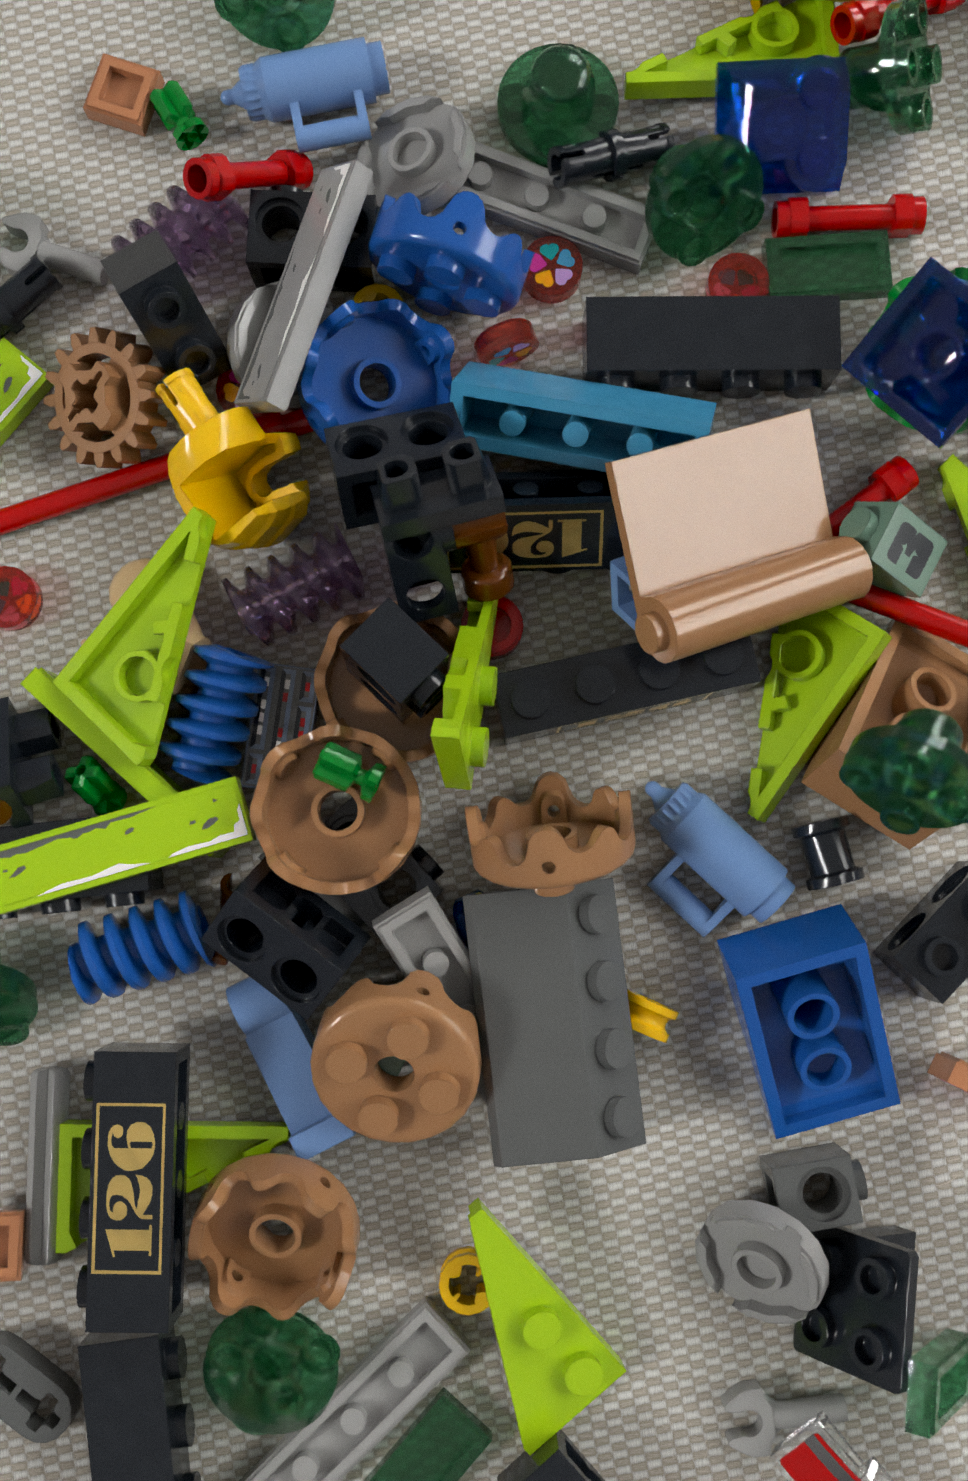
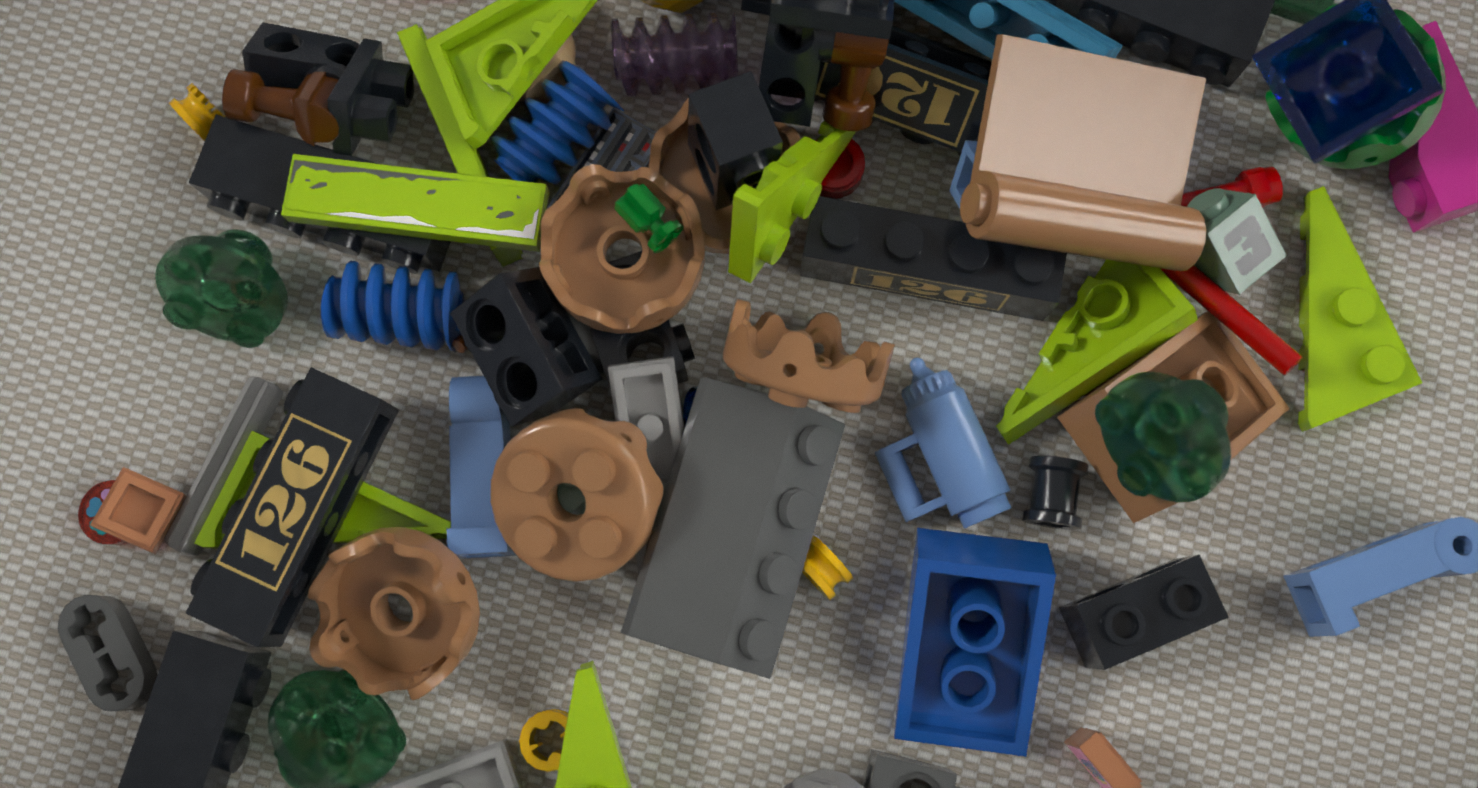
camera: 25 degrees right, 5 degrees down
(96, 786) = (420, 146): green piece -> none

